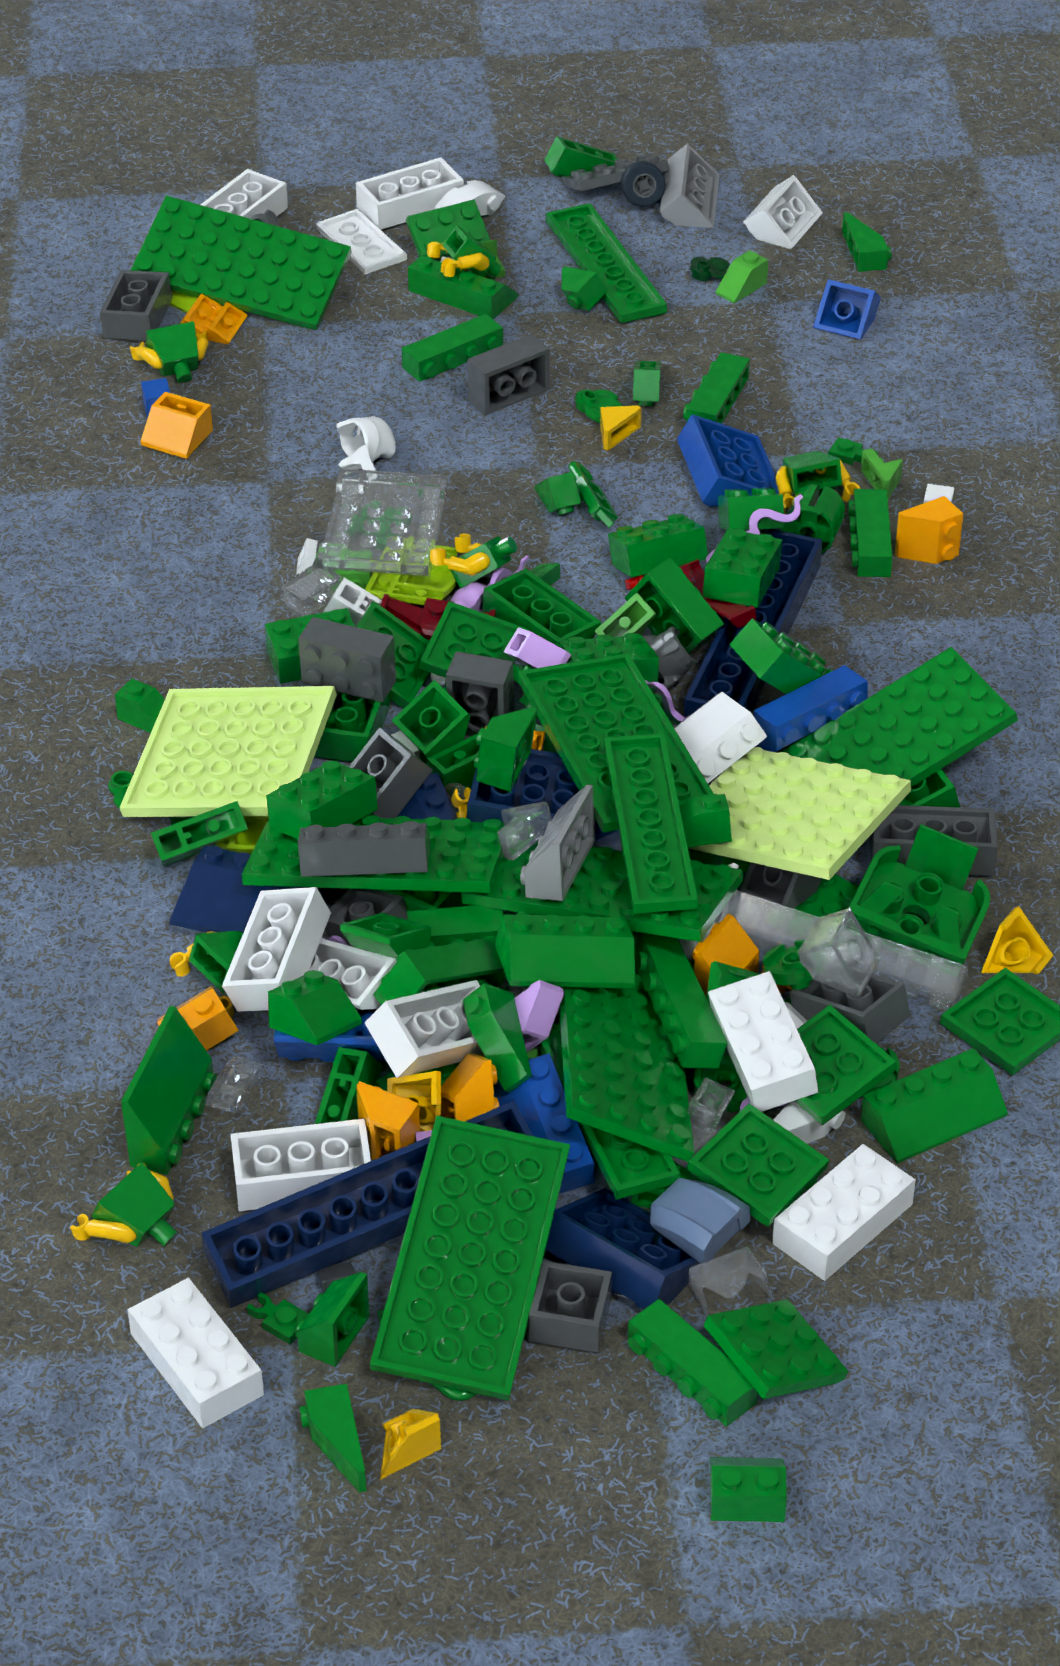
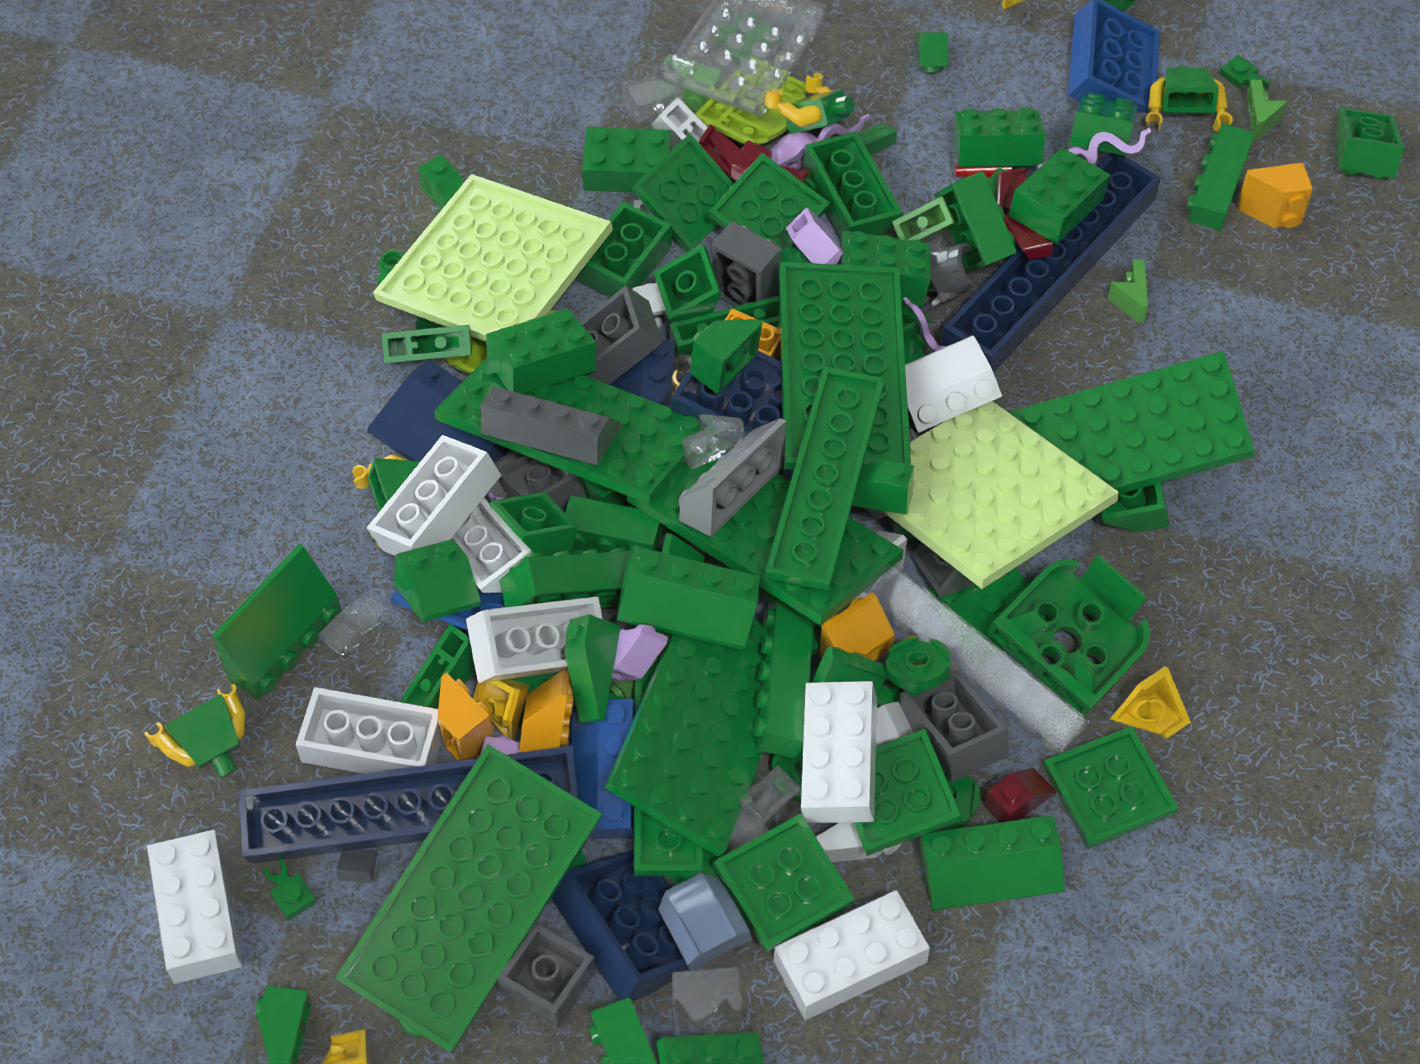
camera: 20 degrees right, 15 degrees up
(207, 1018) = (344, 549): light orange slope -> none
(307, 555) = (669, 47): white tile -> none
(335, 1319) = (329, 915): green slope -> none
(348, 659) = (633, 197): dark grey brick -> none
(592, 495) = (965, 58): green plate -> none
(777, 658) = (1057, 322): green brick -> none
(810, 707) = (1060, 373): blue slope -> none
(822, 519) = (1170, 145): green cylinder -> none
(837, 639) = (1132, 293): none -> bright green slope
(839, 953) = (956, 676): clear slope -> none
(928, 1048) = (1018, 795): none -> dark red slope
(937, 491) = (1310, 150): white tile -> none
(968, 825) = (1141, 554): dark grey slope -> none
(988, 479) = (1368, 143): none -> green slope

